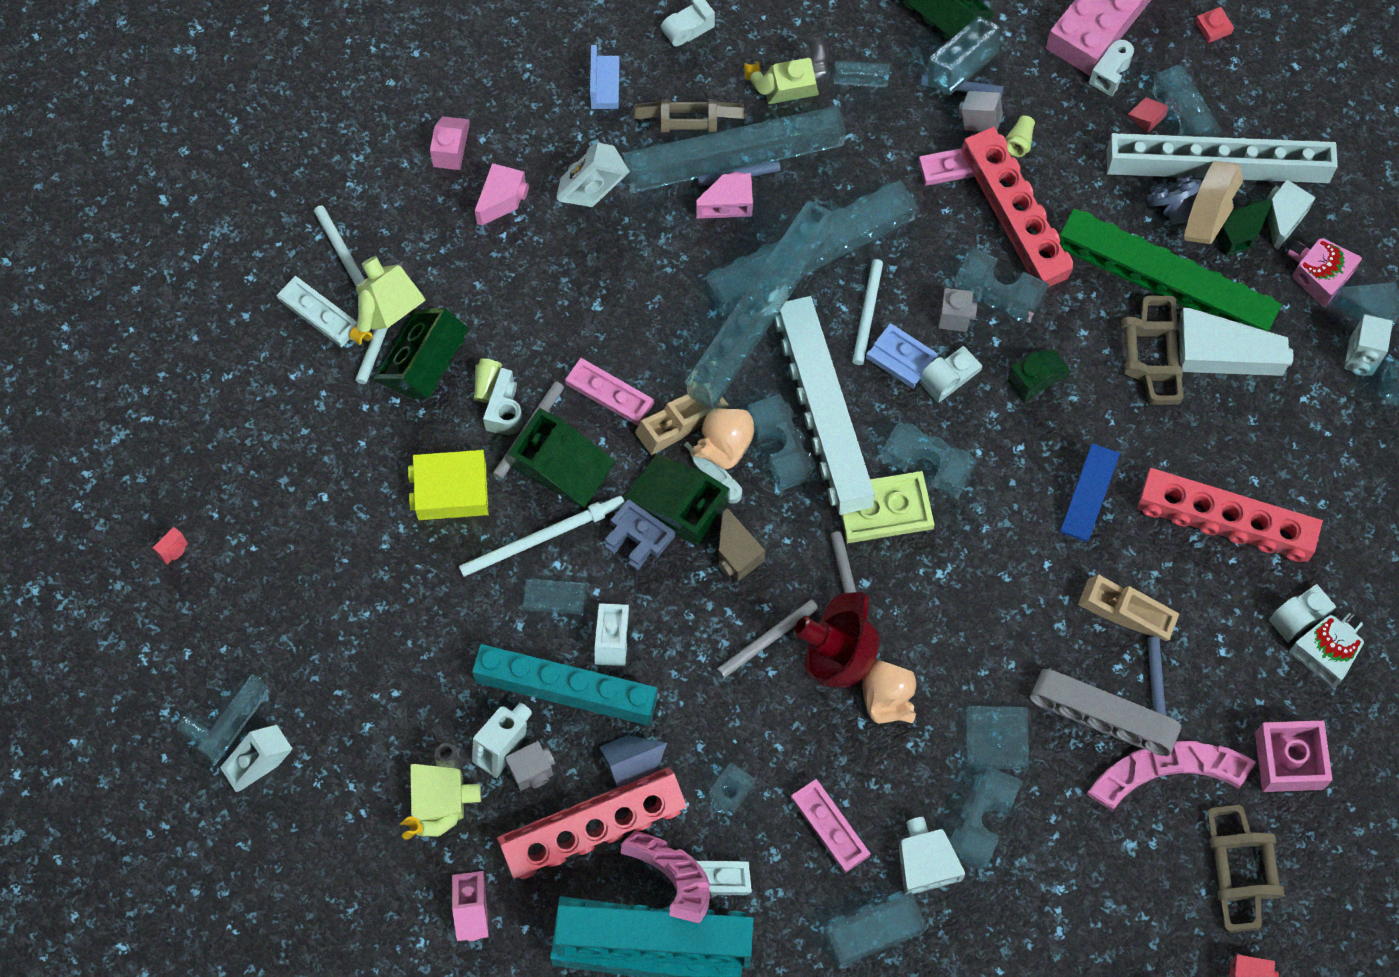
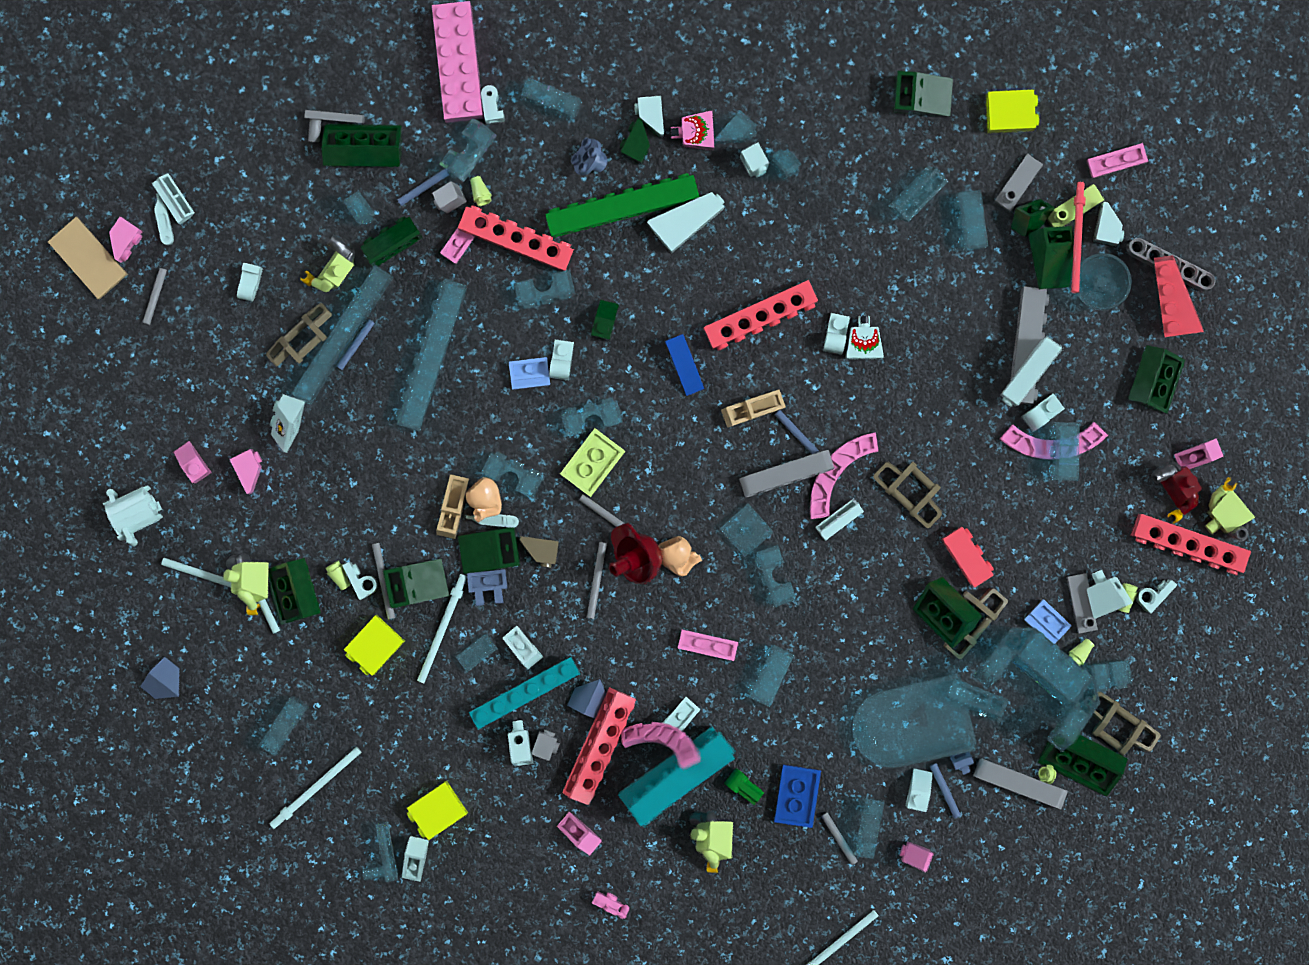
camera: 45 degrees left, 20 degrees up
(170, 546) = (272, 799): coral plate -> none
(172, 578) = (287, 812): none -> light aqua bar
(191, 319) = (162, 680): none -> sand blue slope
(284, 473) = (283, 725): none -> clear light blue arch
(317, 311) = (218, 615): light aqua tile -> none
(335, 726) = (436, 811): none -> neon yellow brick
(338, 129) = (132, 512): none -> light aqua container
(438, 795) = (517, 799): yellowish green torso -> none
(604, 81) = (237, 355): light blue panel -> none
(609, 391) = (404, 525): bright pink plate -> none
(727, 197) = (364, 364): bright pink slope -> none
(733, 779) = (645, 663): clear light blue brick -> none
(760, 304) = (440, 417): clear light blue brick -> none
(825, 407) = (516, 437): light aqua brick -> none
(861, 73) = (366, 230): clear light blue tile -> none
(867, 312) = (490, 362): light aqua bar -> none
(875, 38) = (359, 208): none -> clear light blue slope
(877, 105) = (391, 241): none -> dark green slope
(927, 859) = (765, 620): light aqua torso -> none
(957, 310) = (535, 323): light grey brick -> none
(964, 55) = (411, 173): clear light blue brick -> none
(1070, 84) = (479, 139): none -> clear light blue arch
(1123, 823) = (839, 519): none -> light aqua piece
(1141, 327) = (649, 236): dark tan bar -> none
(1148, 114) = (532, 116): coral slope -> none
(1194, 155) = (593, 113): light aqua brick -> none
(1213, 202) = (613, 149): tan slope -> none
(1214, 24) = (521, 28): coral plate -> none
(1293, 756) = (891, 416): bright pink brick -> none

